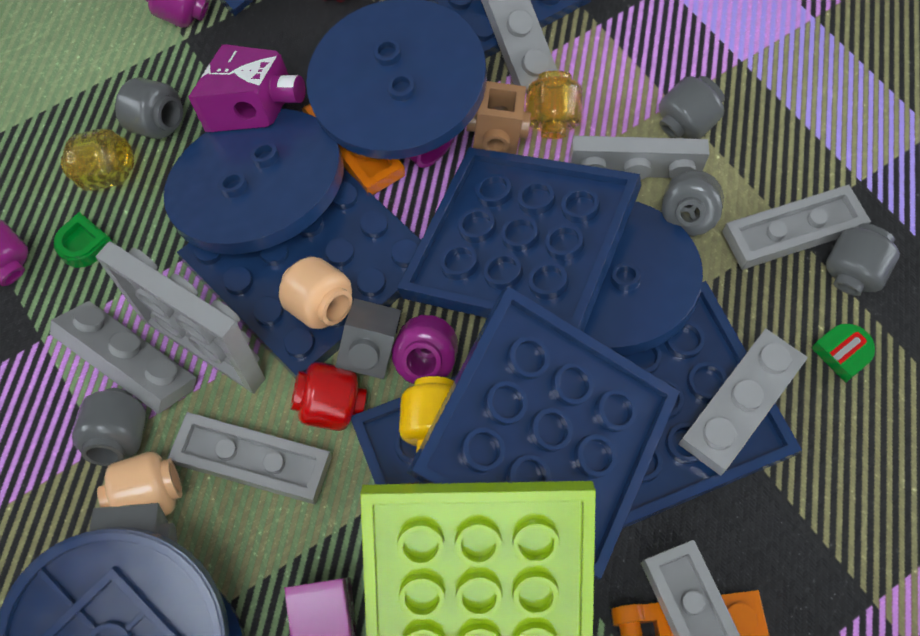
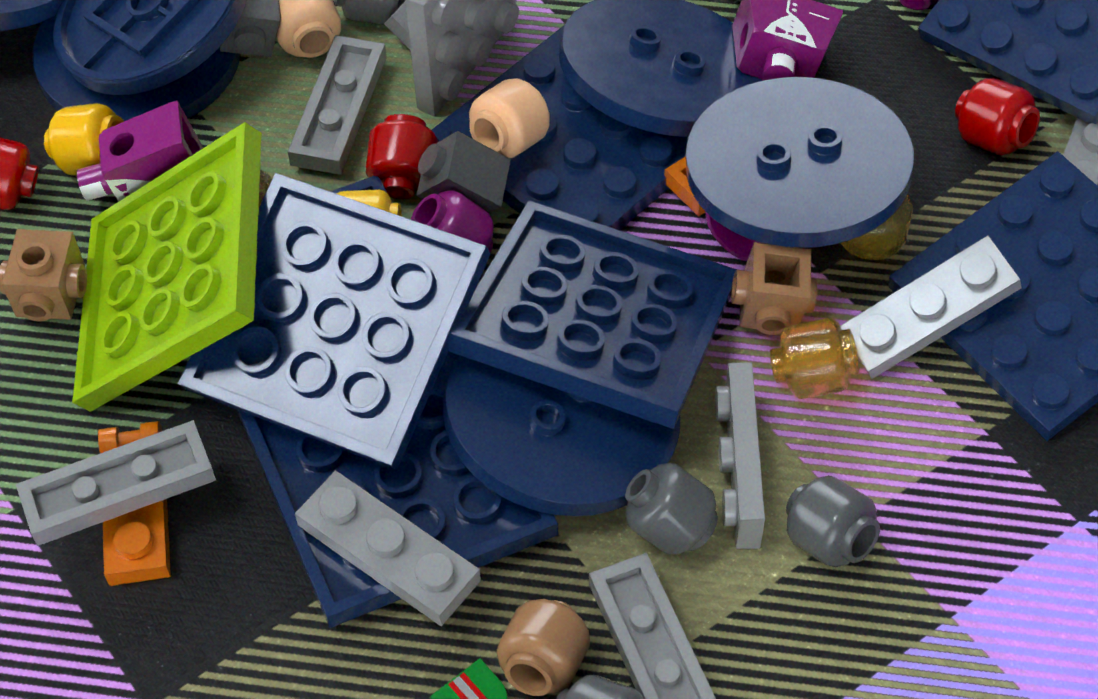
camera: 90 degrees right, 10 degrees down
(807, 295) = (543, 647): none -> medium nougat head

